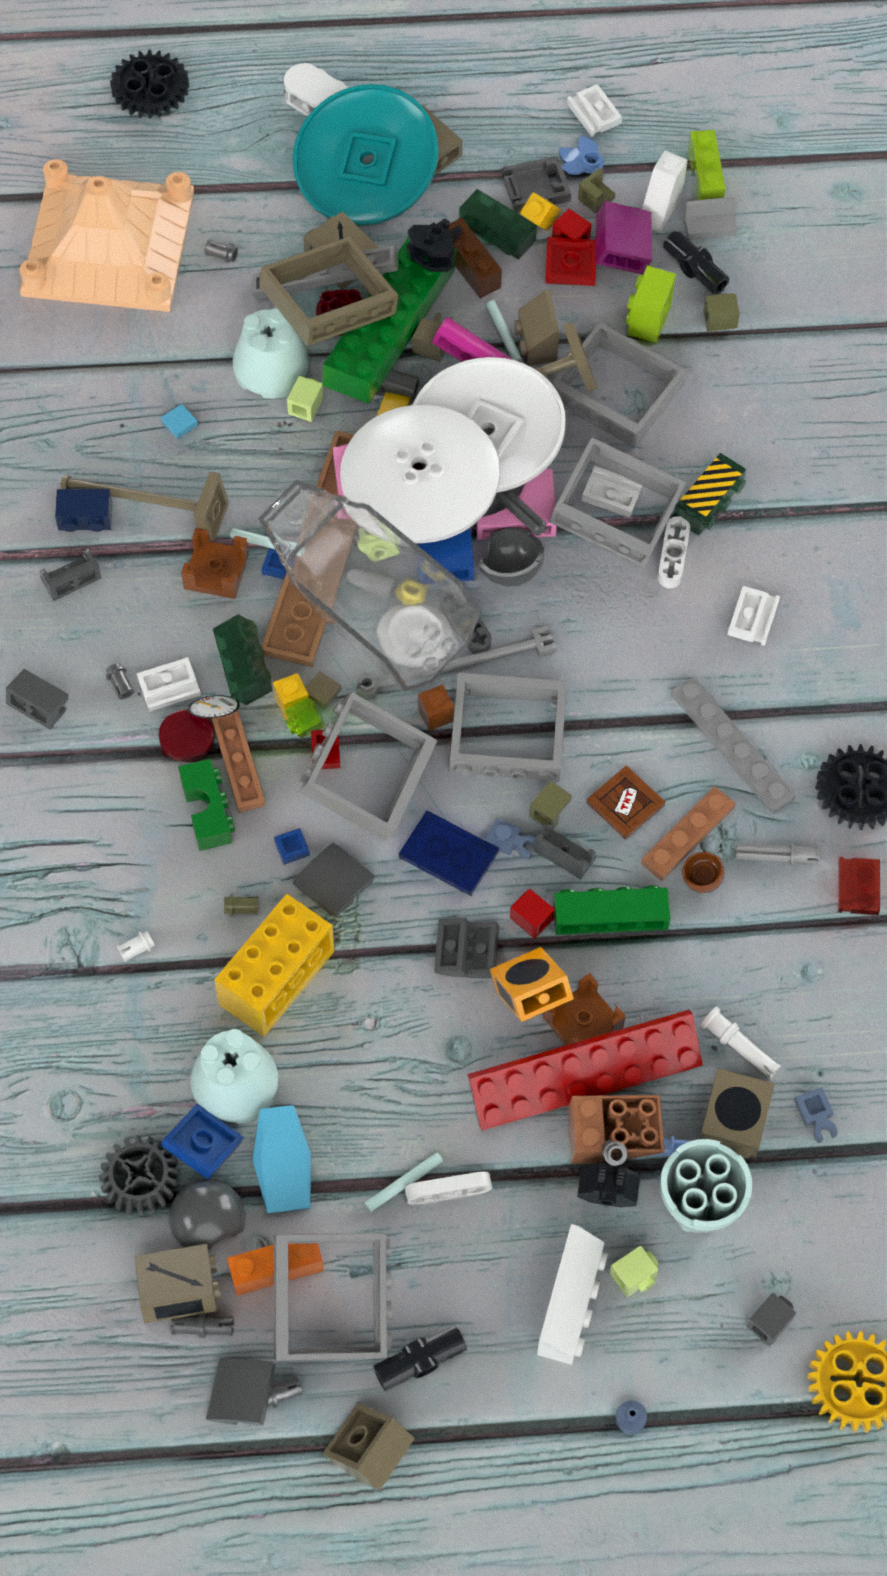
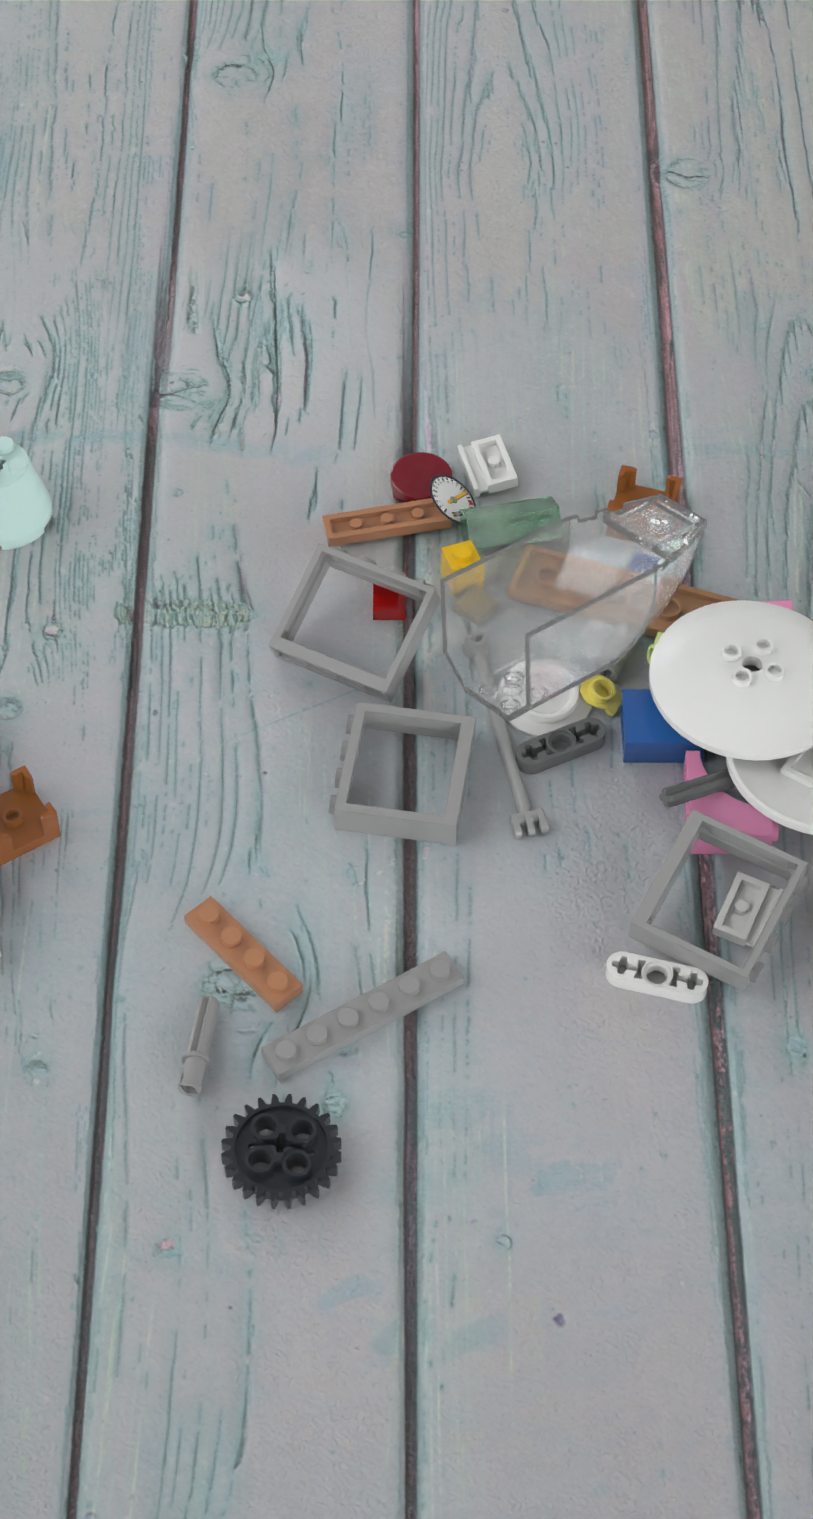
camera: 95 degrees right, 10 degrees down
(36, 698) = (475, 355): dark grey hinge -> none
(71, 576) = (633, 387): dark grey hinge -> none
(83, 509) = (718, 396): dark blue brick -> none
(121, 684) = (495, 425): flat silver pin -> none
(135, 946) = (174, 437): white pin -> none
(201, 783) = (310, 498): green arch -> none
(208, 510) = (716, 492): dark tan tile -> none
(240, 905) = (206, 513): olive pin -> none
(275, 965) = (116, 528): yellow brick -> none
(291, 846) = (275, 568): blue tile -> none
(304, 718) = (427, 566): clear neon green brick -> none
(333, 879) = (226, 600): dark grey slope -> none
(436, 707) = (435, 694): dark orange brick -> none
(448, 853) = (247, 709): clear blue tile -> none
(466, 948) = (123, 718): dark grey slope -> none
(507, 837) = (258, 766): sand blue plate -> none
(512, 557) = (634, 785): dark grey cylinder -> none
(531, 984) = (53, 755): light orange brick -> none
(532, 913) = (147, 775): red panel -> none
(549, 804) = (292, 801): olive panel -> none
(563, 852) = (231, 817): dark grey hinge -> none
(611, 910) = (144, 857): green brick -> none
(625, 802) = (293, 890): dark orange tile -> none
(703, 872) = (179, 955): dark orange hair -> none
(711, 493) = (744, 1023): brick -> none
(753, 615) = (552, 1056): white plate -> none
(859, 886) = (140, 1132): clear red plate -> none

